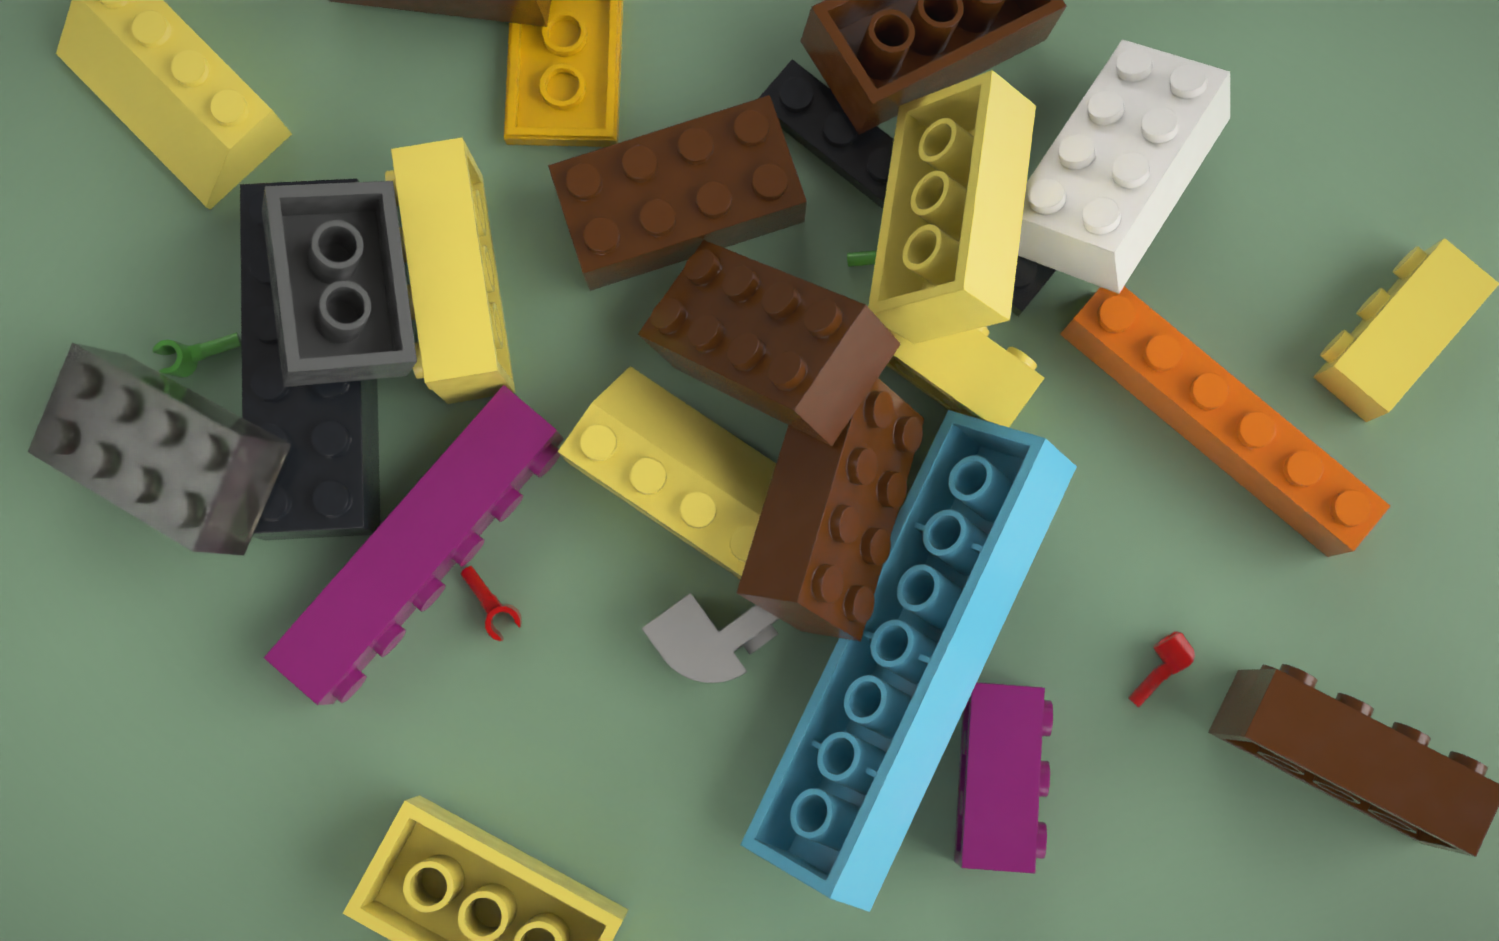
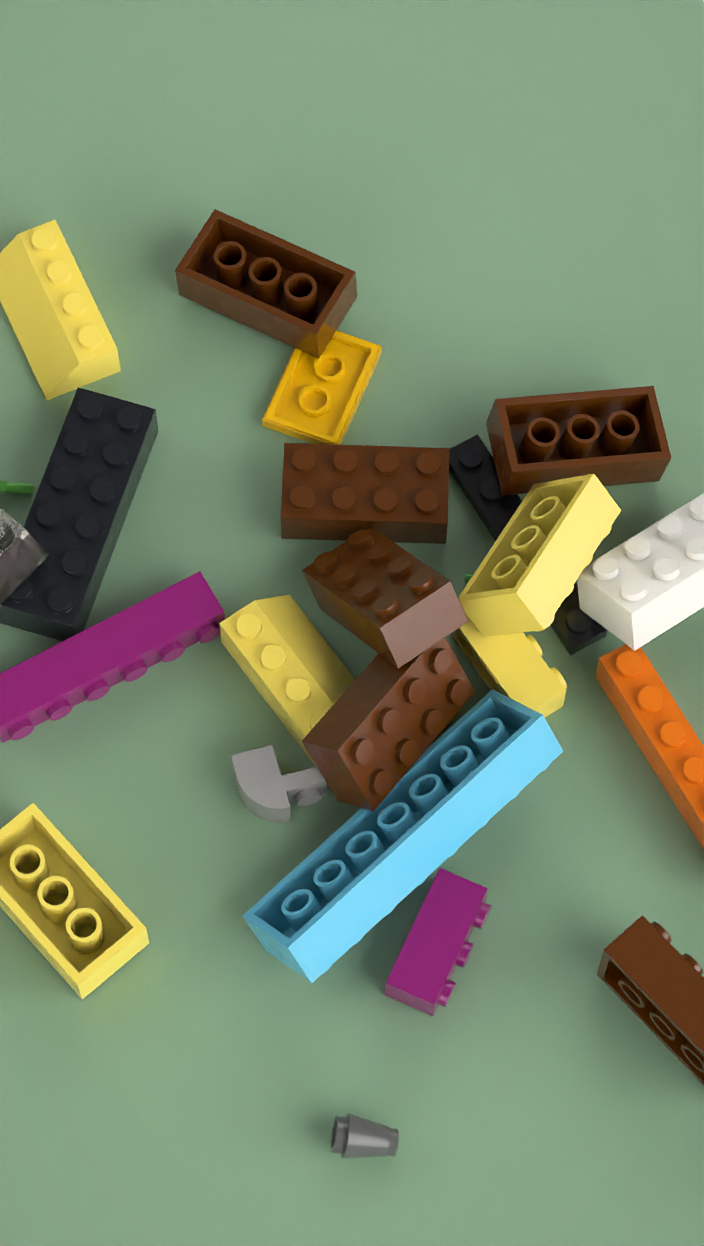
camera: 20 degrees right, 15 degrees down
(338, 282) = (120, 464): dark grey brick -> none
(451, 271) = (194, 488): light yellow brick -> none
(489, 602) = (134, 712): red hand -> none
(1176, 656) = (591, 912): red hand -> none

